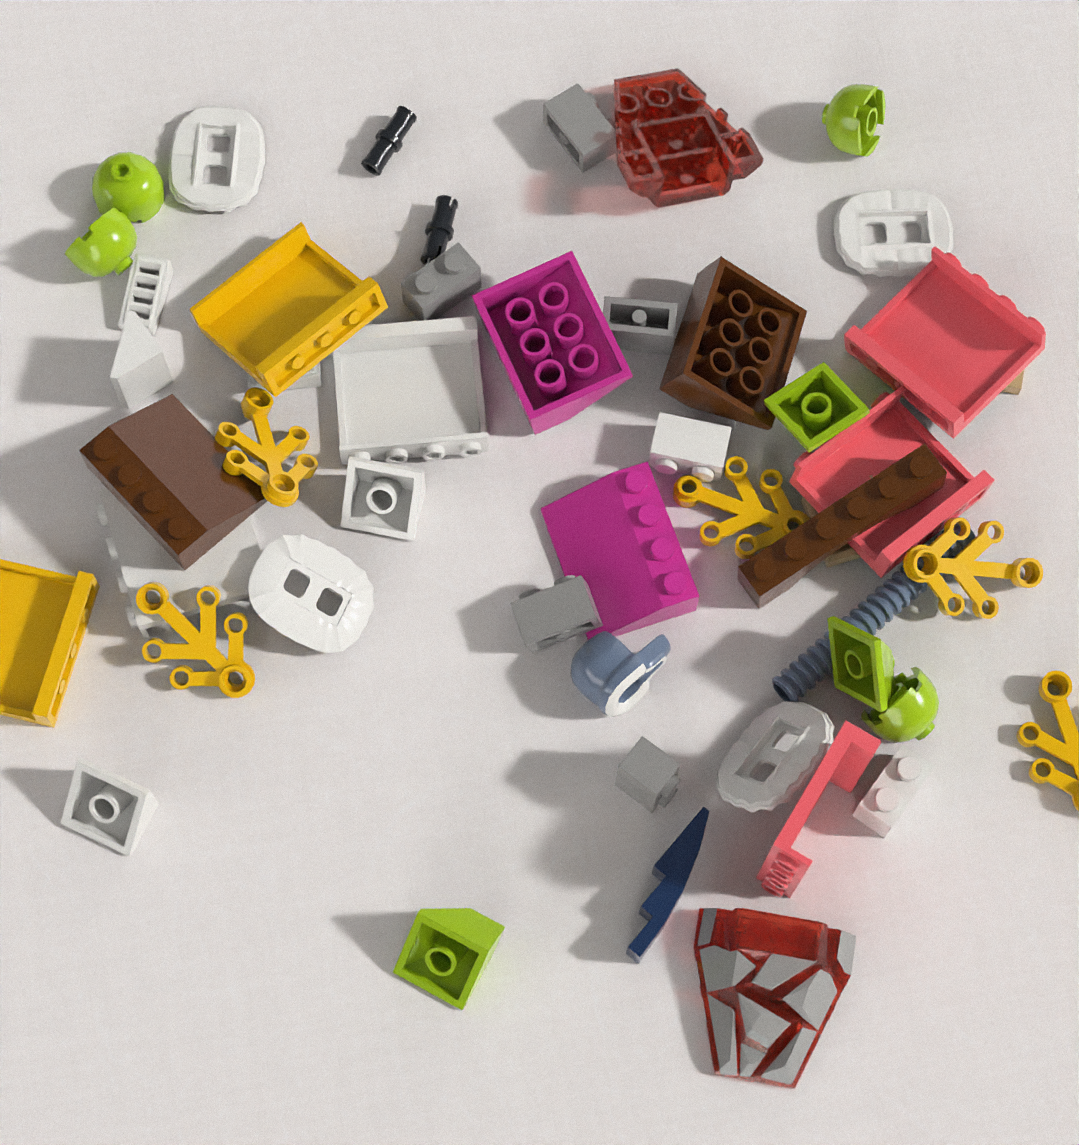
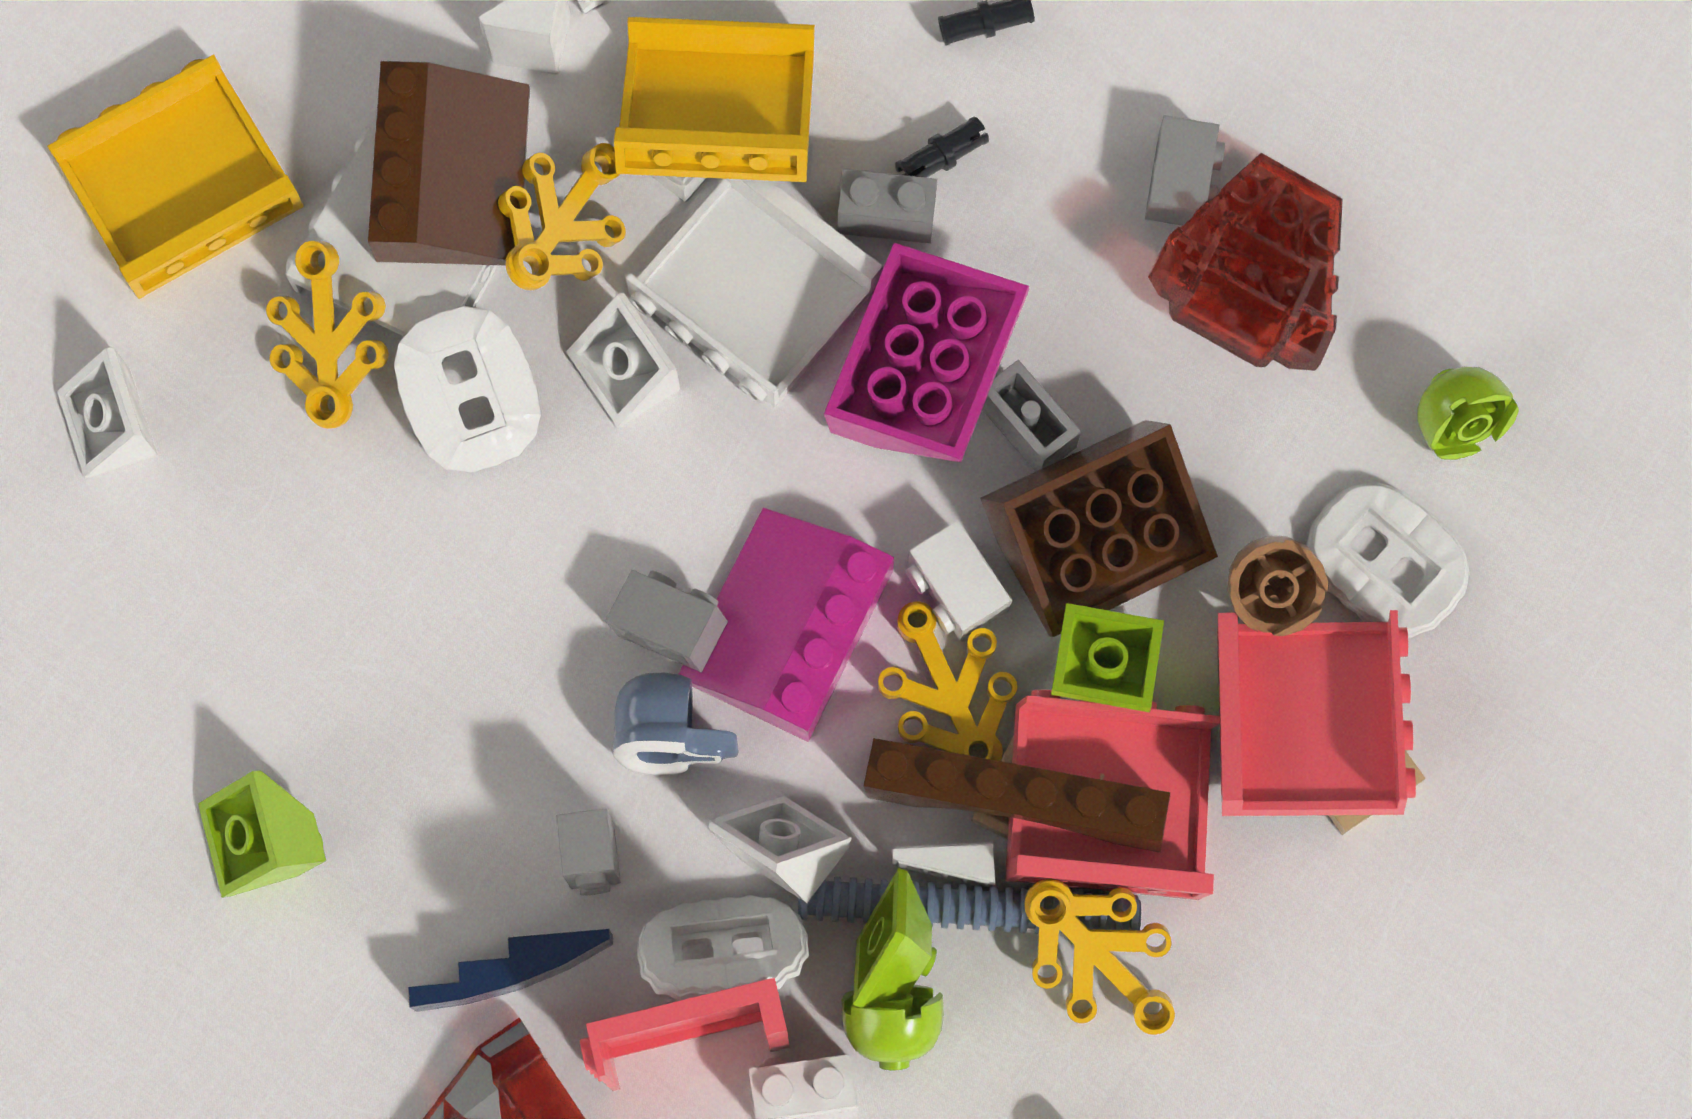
camera: 45 degrees right, 5 degrees up
(748, 671) = (783, 843): none -> white slope
(846, 593) = (957, 862): none -> white slope
(859, 291) = (1277, 585): none -> medium nougat cylinder

